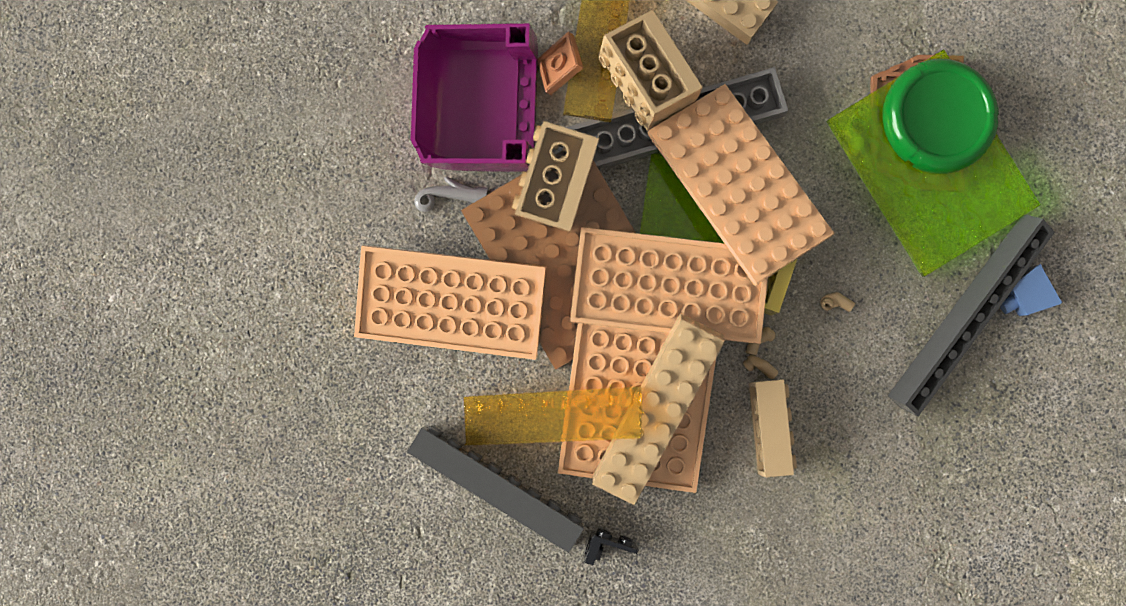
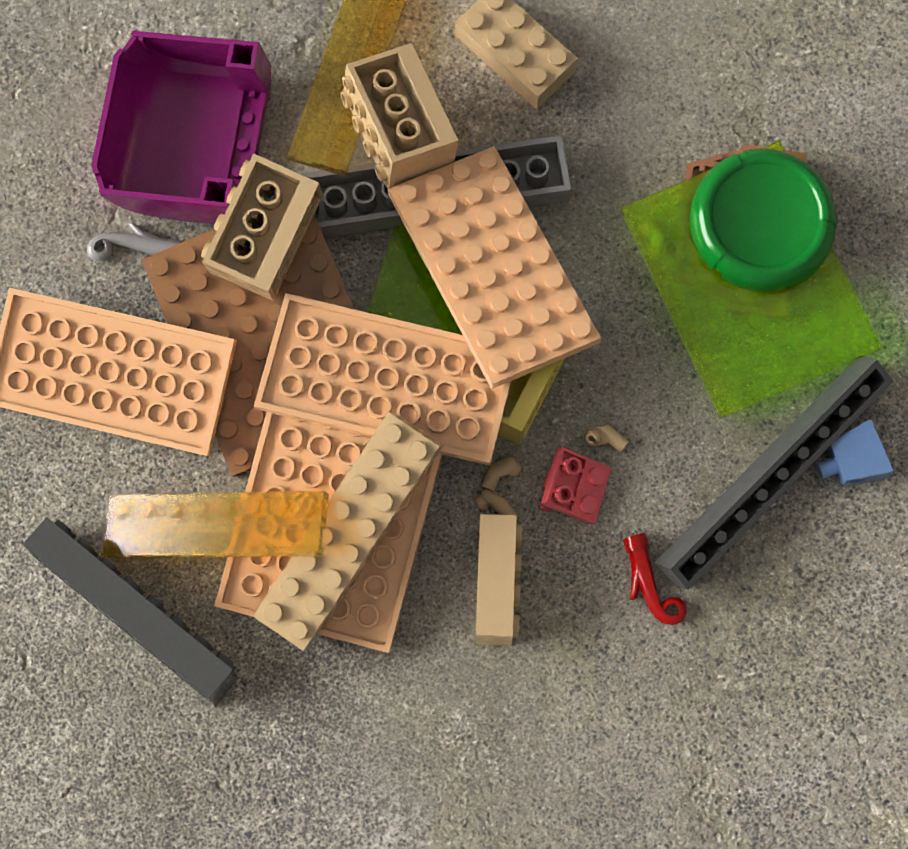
camera: 10 degrees right, 10 degrees down
(560, 63) = (293, 99): nougat tile -> none
(594, 547) = (245, 705): black bracket -> none
(818, 344) = (575, 486): none -> coral plate
(878, 408) = (644, 579): none -> red plant

